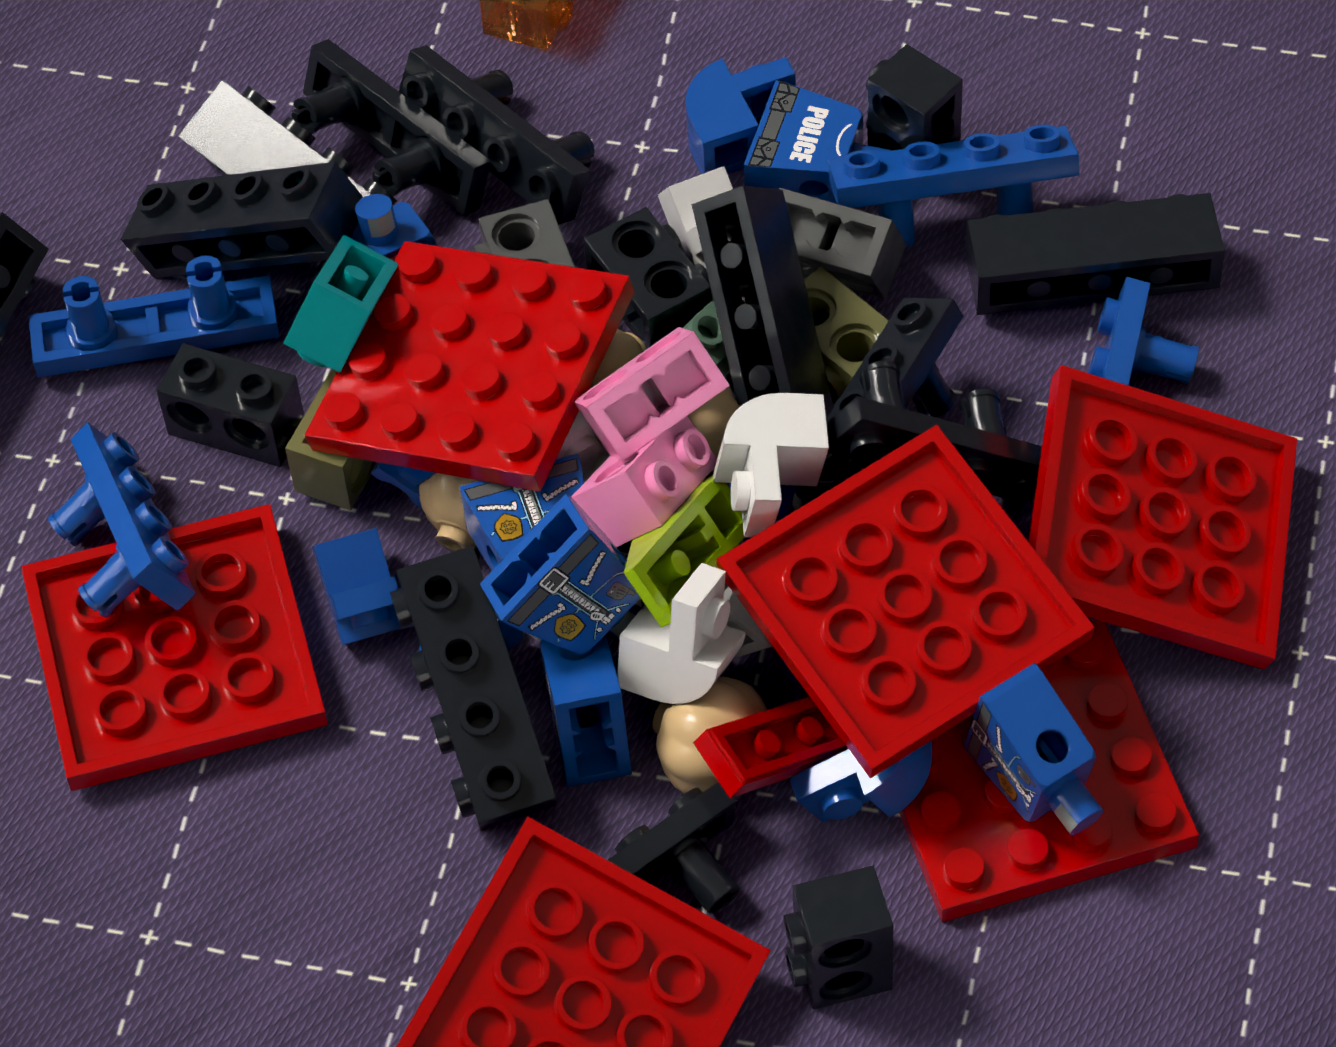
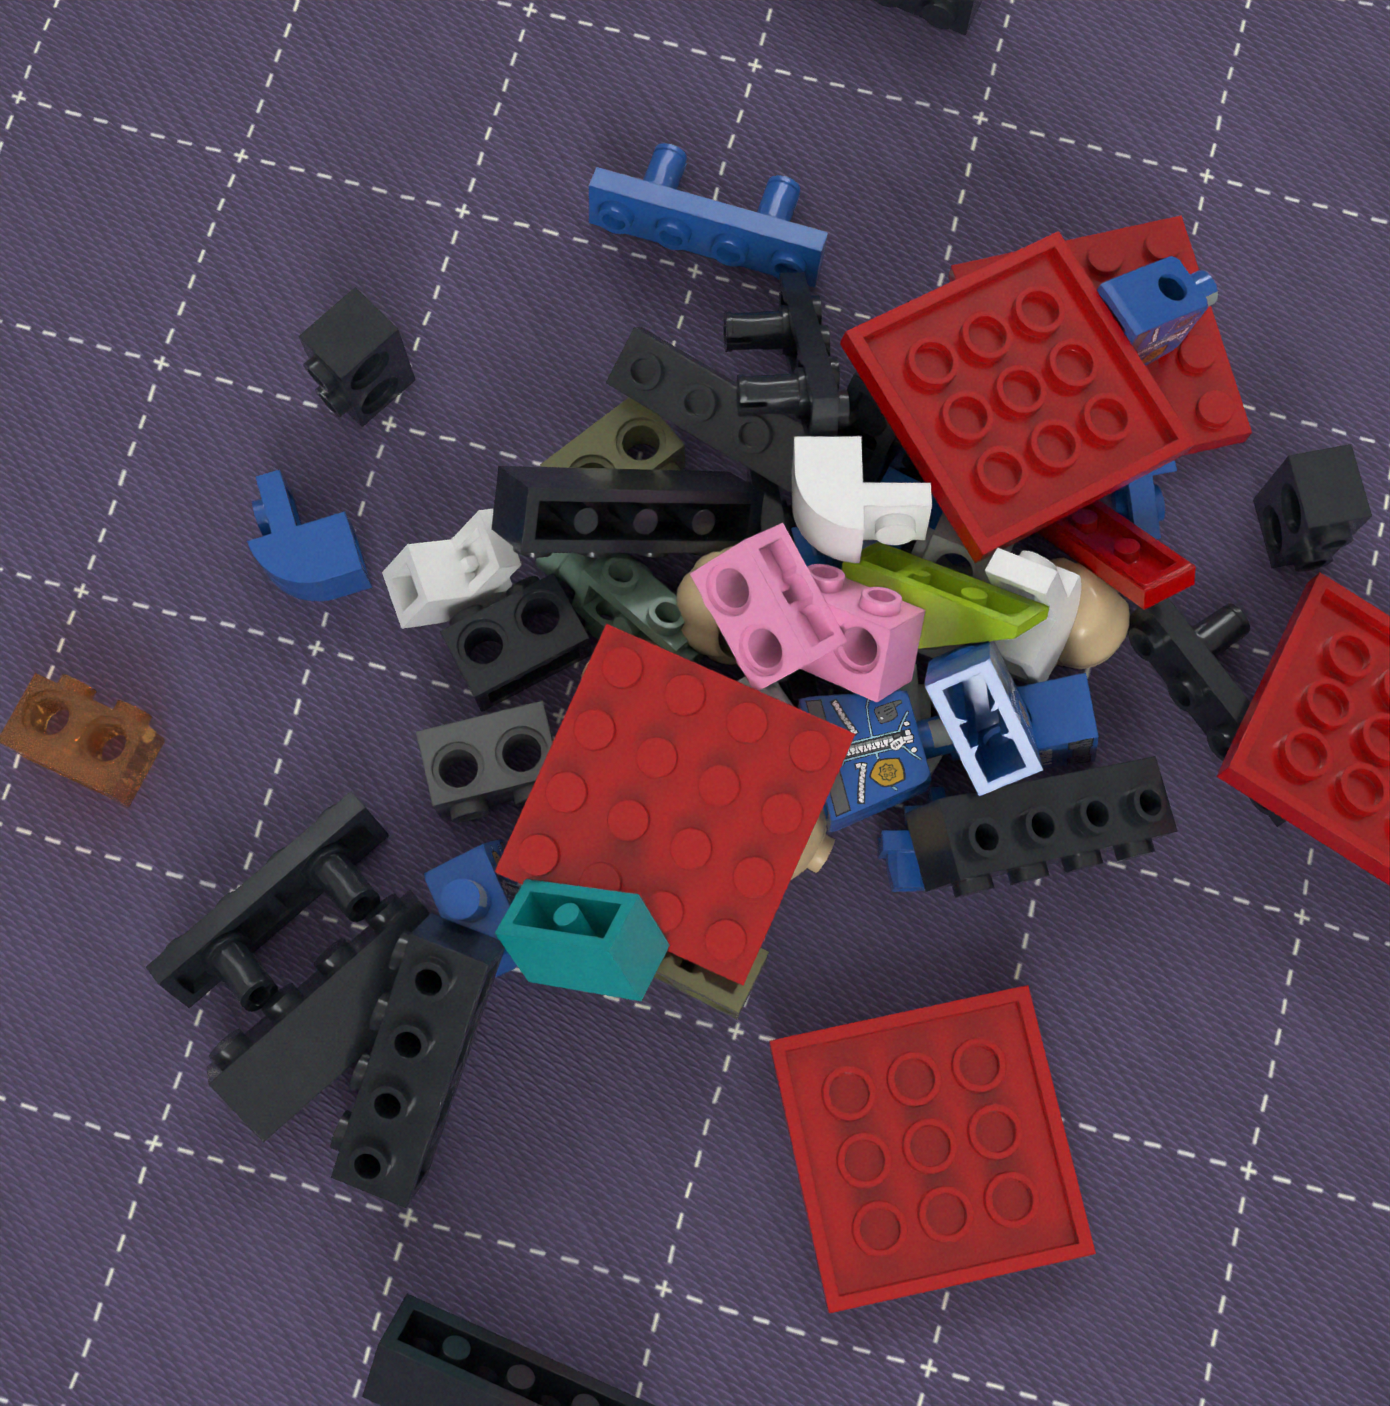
camera: 90 degrees left, 20 degrees up
(123, 497) = (821, 1175): blue plate -> none
(153, 325) = (511, 1176): blue plate -> none
(230, 404) = (637, 1081): black brick -> none
(357, 585) = (882, 946): blue brick -> none
(517, 150) = (343, 761): black plate -> none
(799, 137) = (367, 470): blue torso -> none
(846, 242) = (513, 434): dark grey brick -> none
(967, 165) = (439, 326): blue plate -> none
(1091, 250) = (540, 219): black brick -> none
(1164, 516) = (868, 189): red plate -> none

